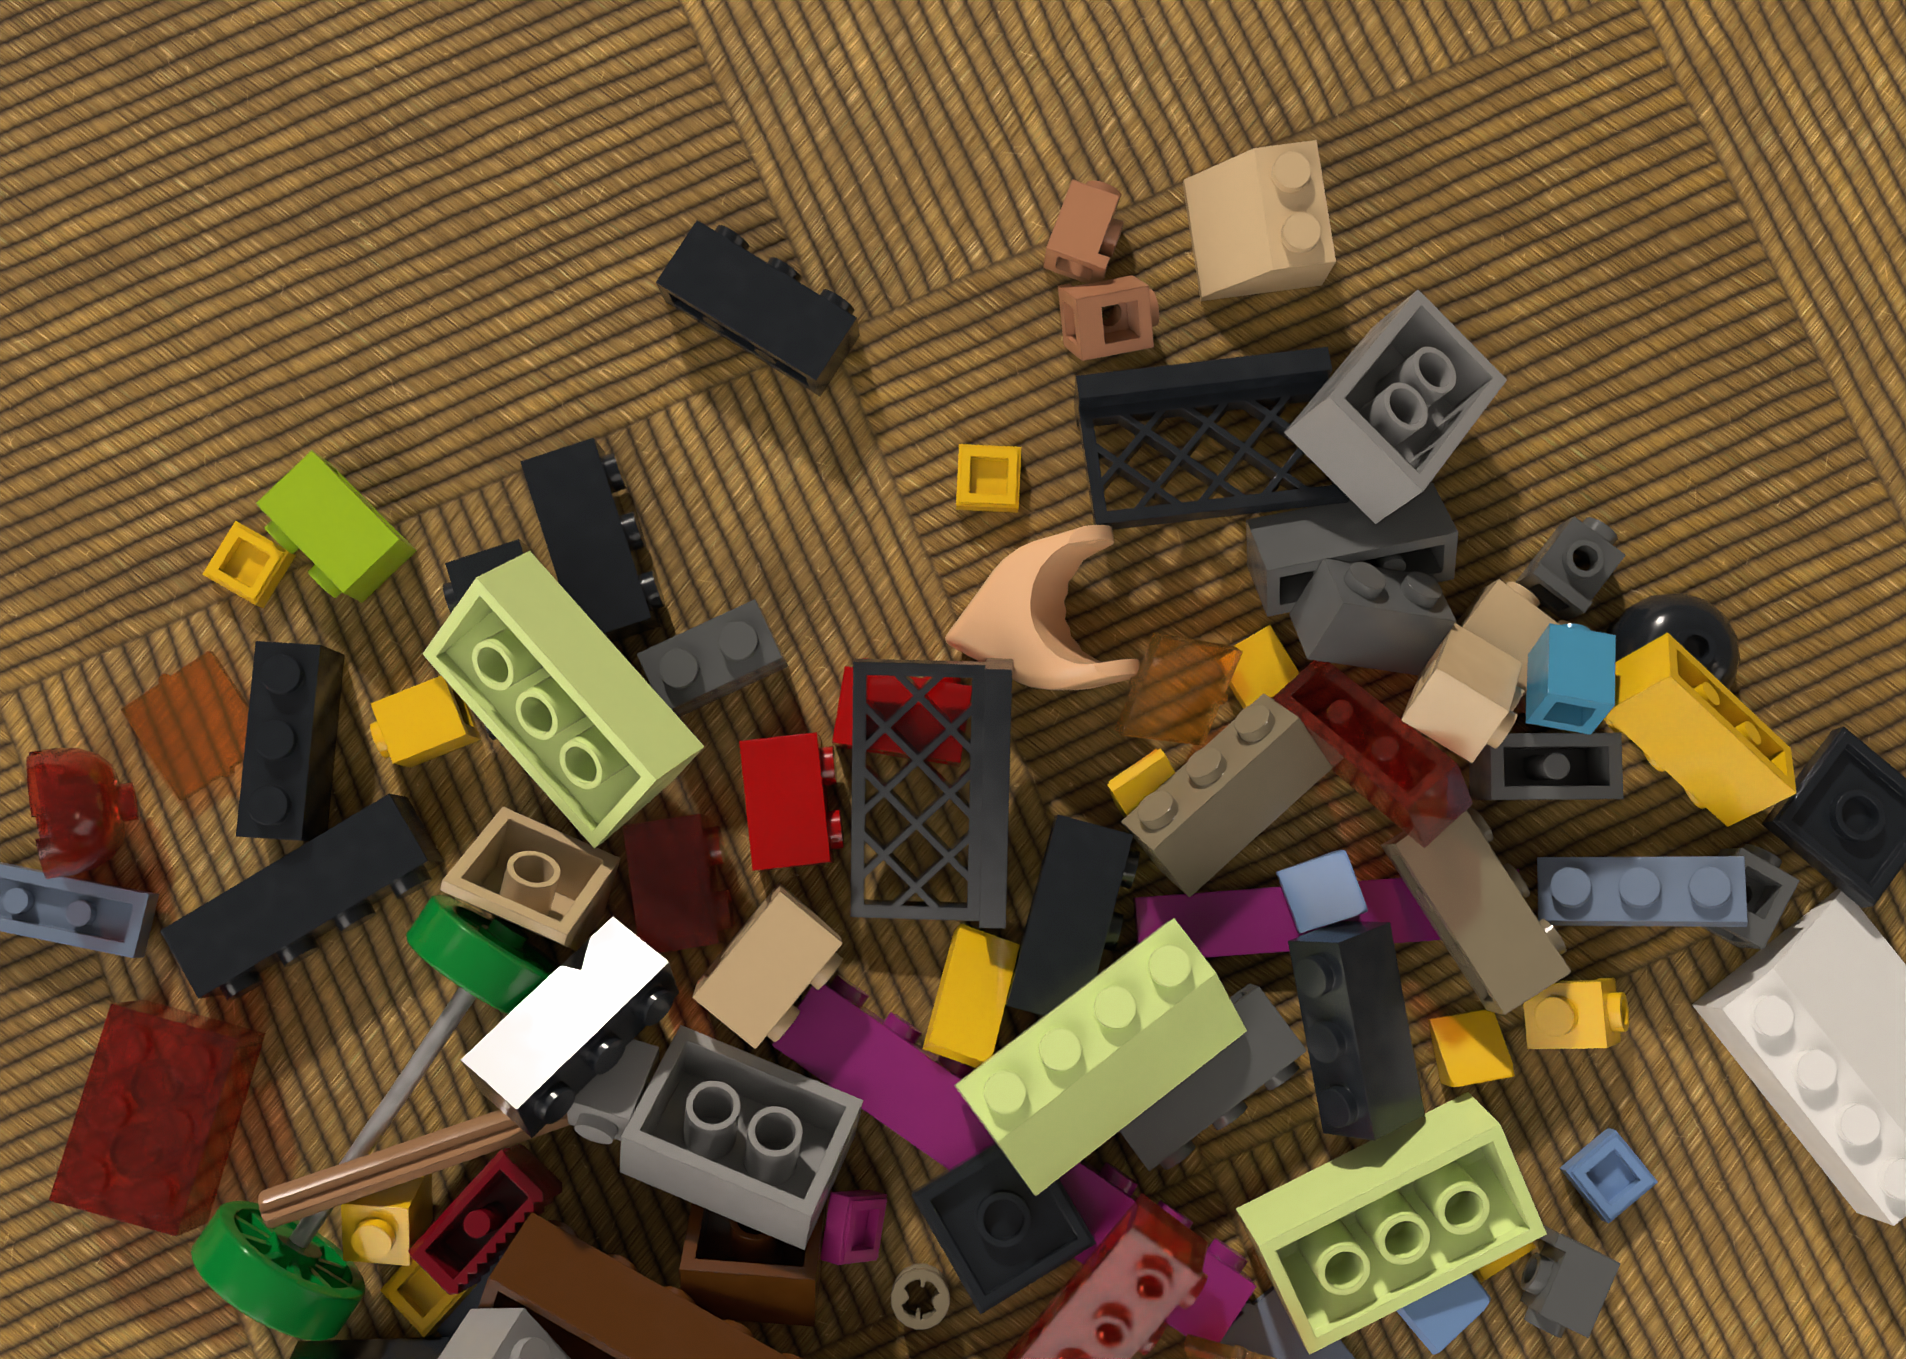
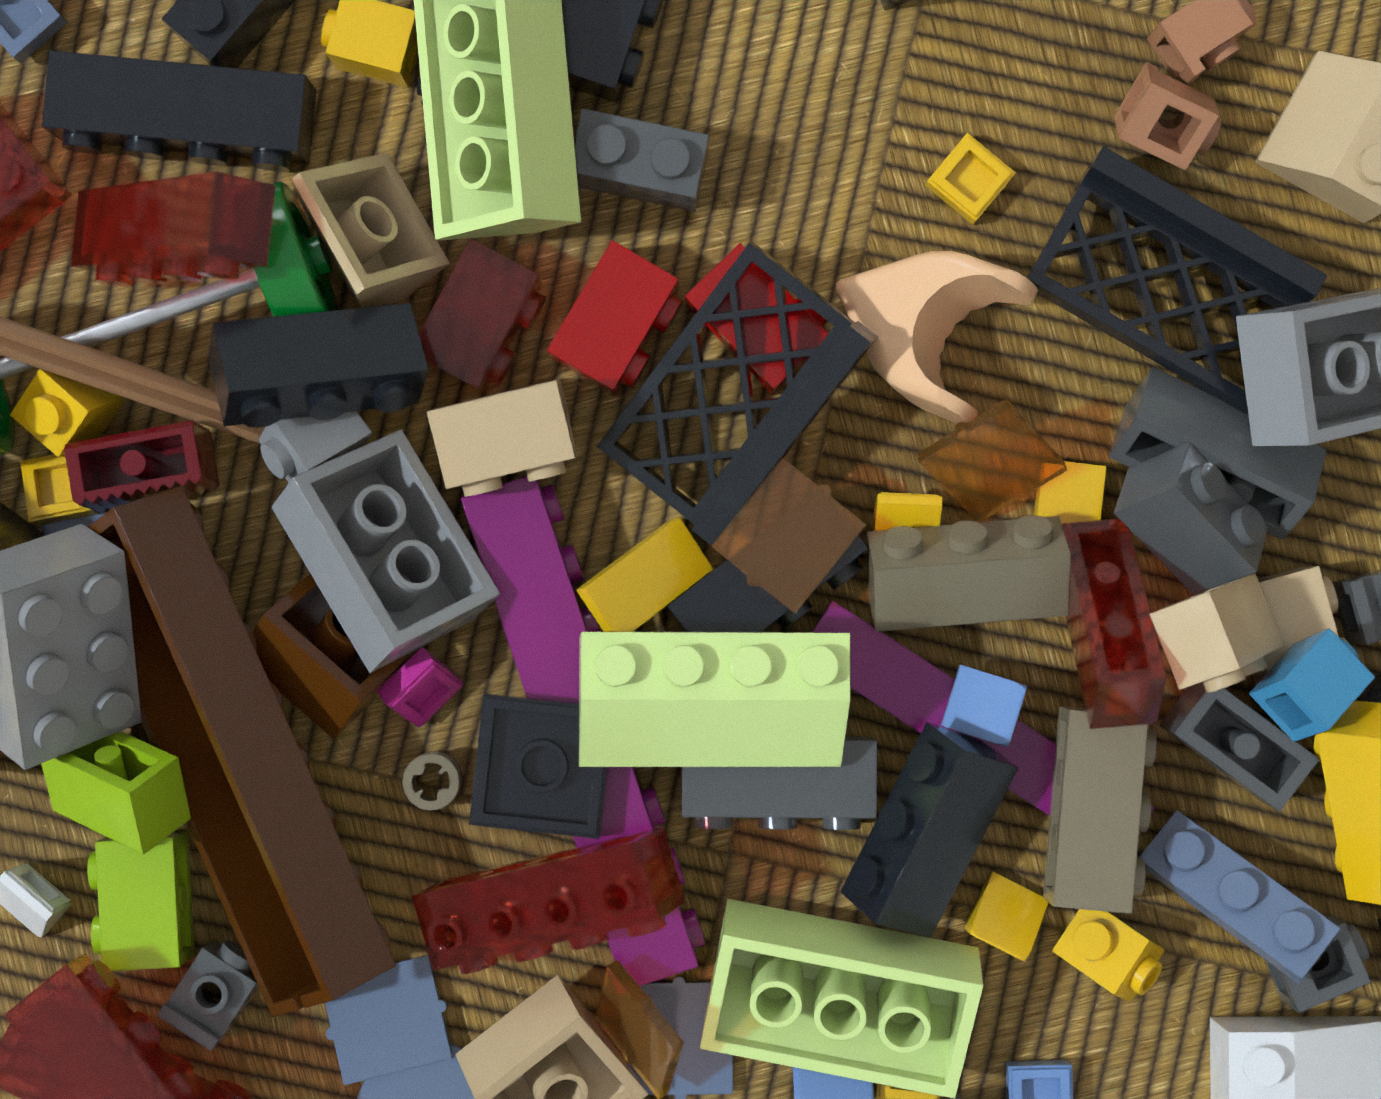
camera: 45 degrees right, 5 degrees up
(371, 1004) = (173, 229): none -> clear red brick
(1062, 873) = (788, 535): none -> clear orange piece

